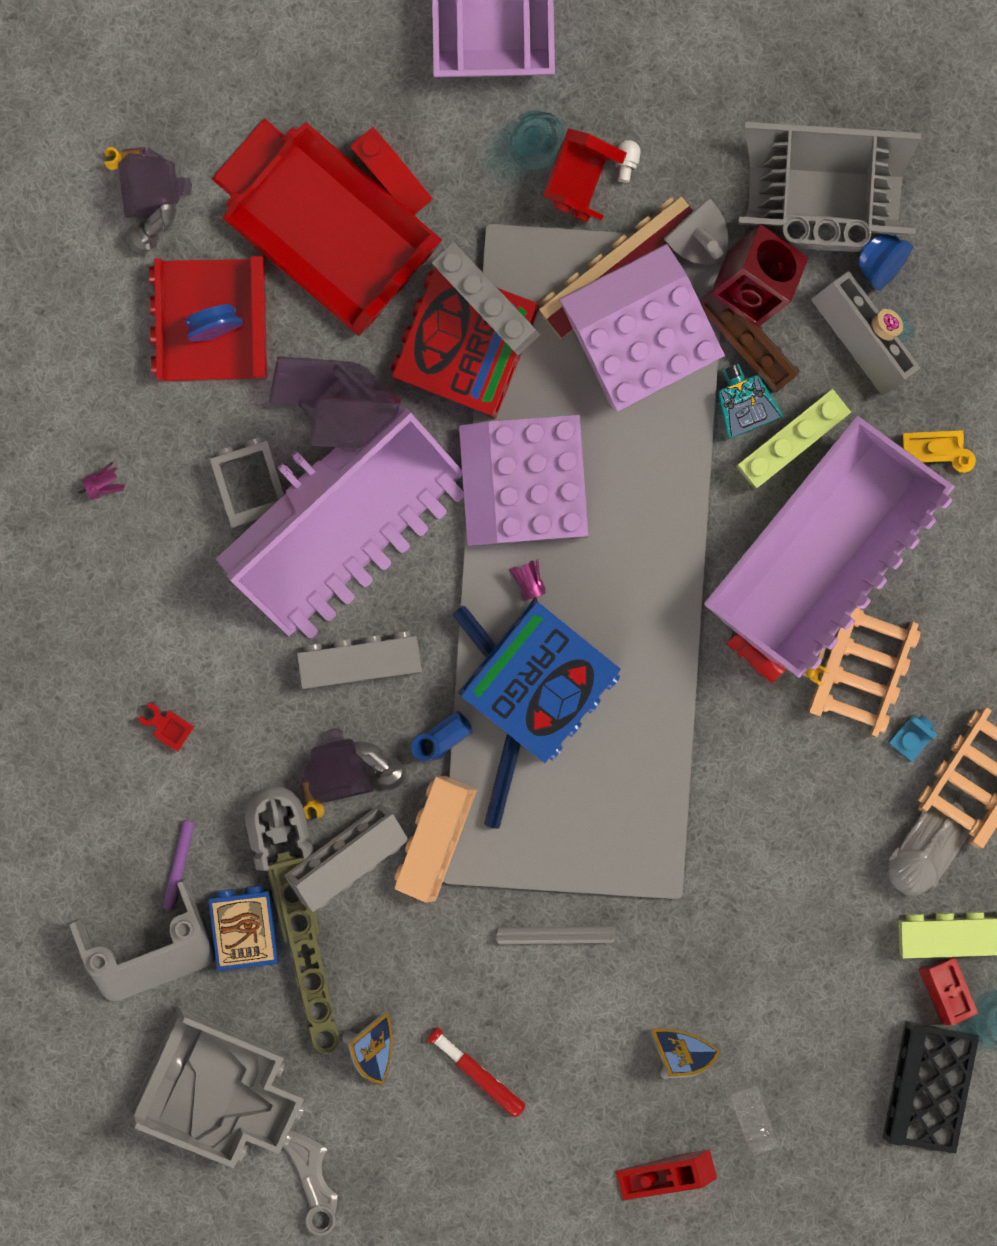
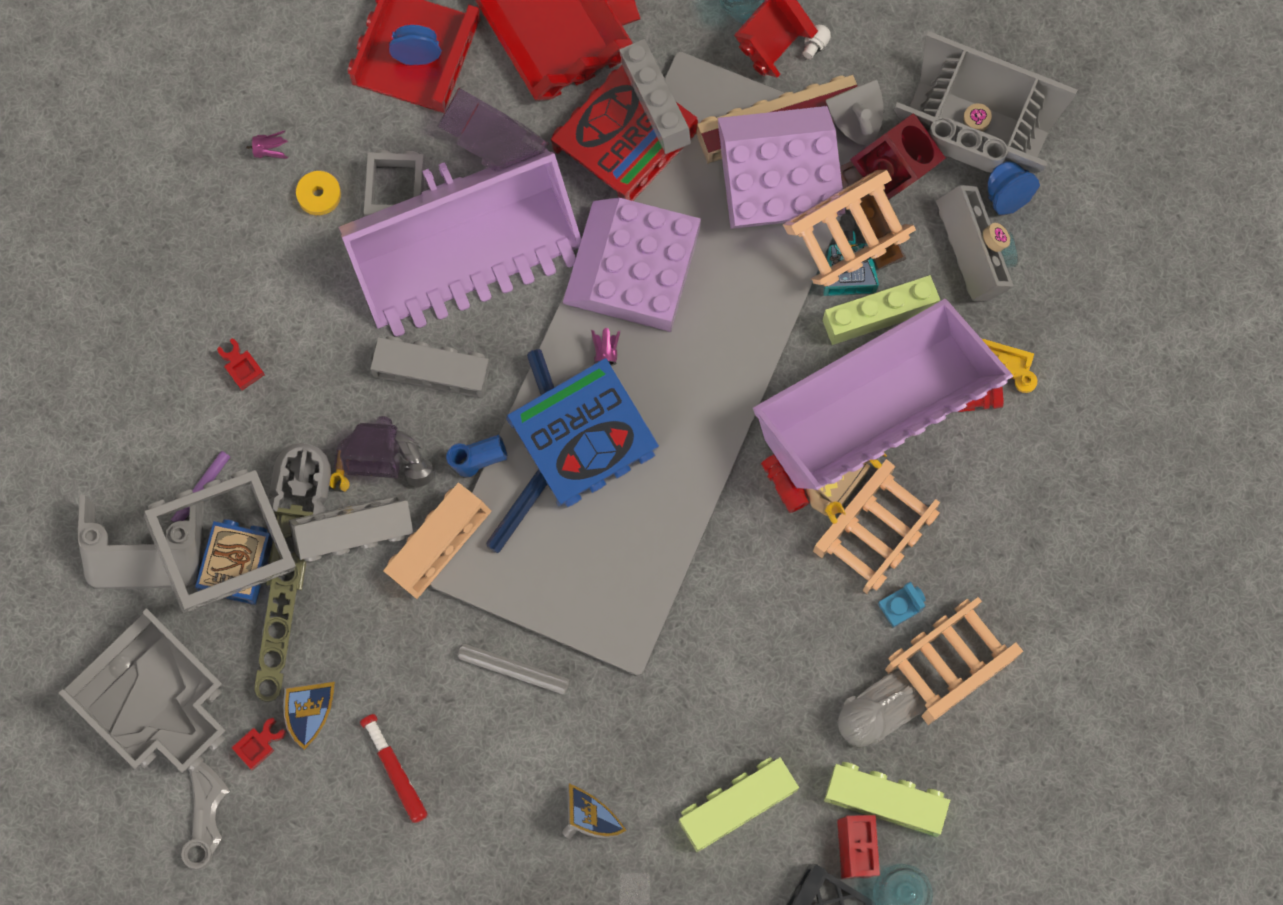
camera: 20 degrees right, 15 degrees down
(186, 514) = (318, 204): none -> yellow piece
(261, 958) = (237, 584): none -> light grey window
(336, 1099) = (255, 747): none -> red plate
(709, 364) = (827, 212): none -> light nougat fence
(820, 990) = (738, 804): none -> yellowish green brick
(824, 189) = (978, 117): none -> tan tile

